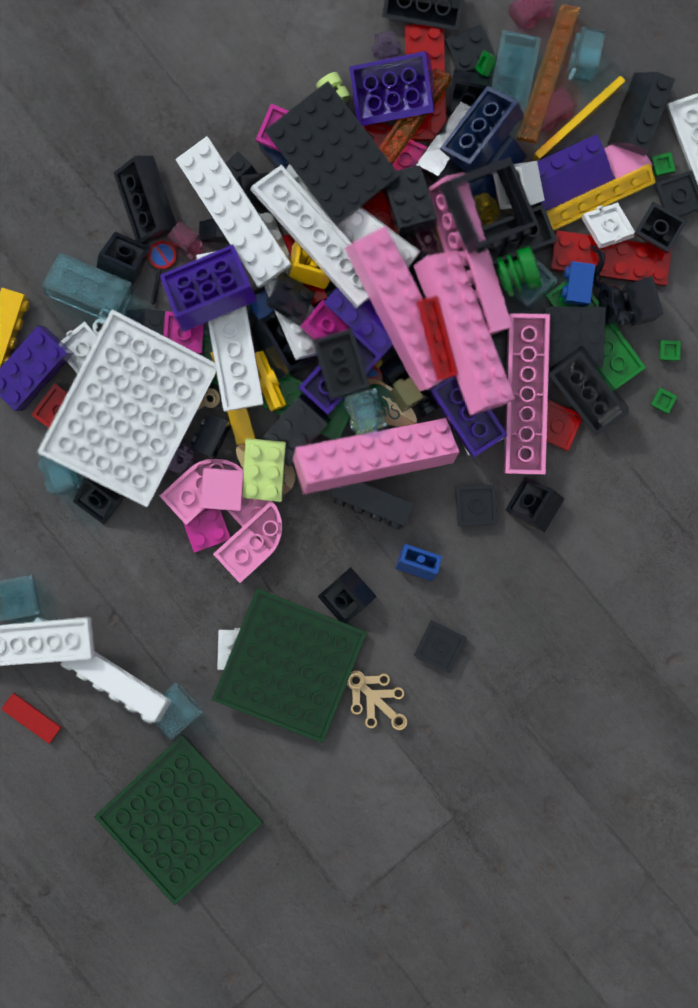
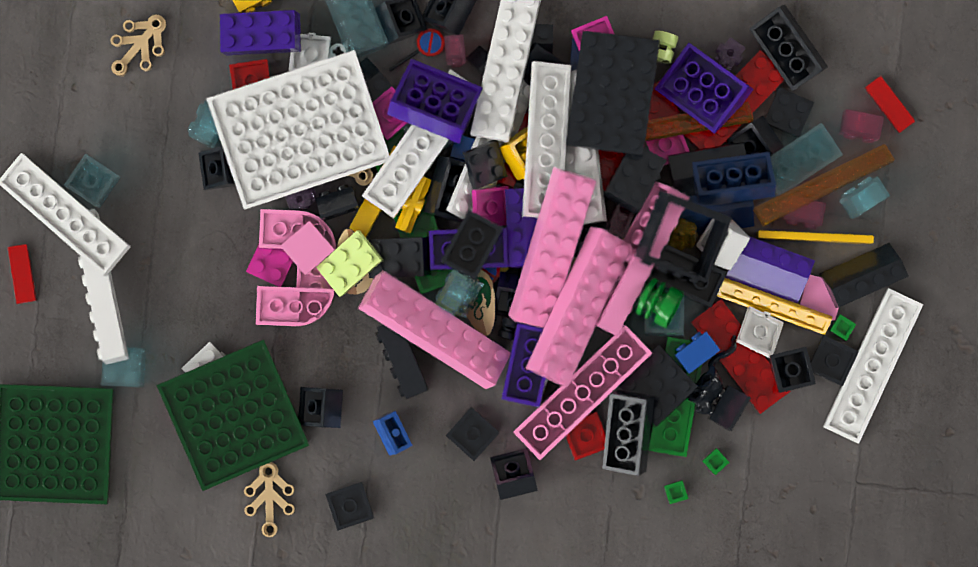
camera: 45 degrees right, 0 degrees up
(406, 394) = (498, 308): olive brick -> none
(437, 337) = (554, 292): red plate -> none
(486, 63) = (787, 134): green plate -> none

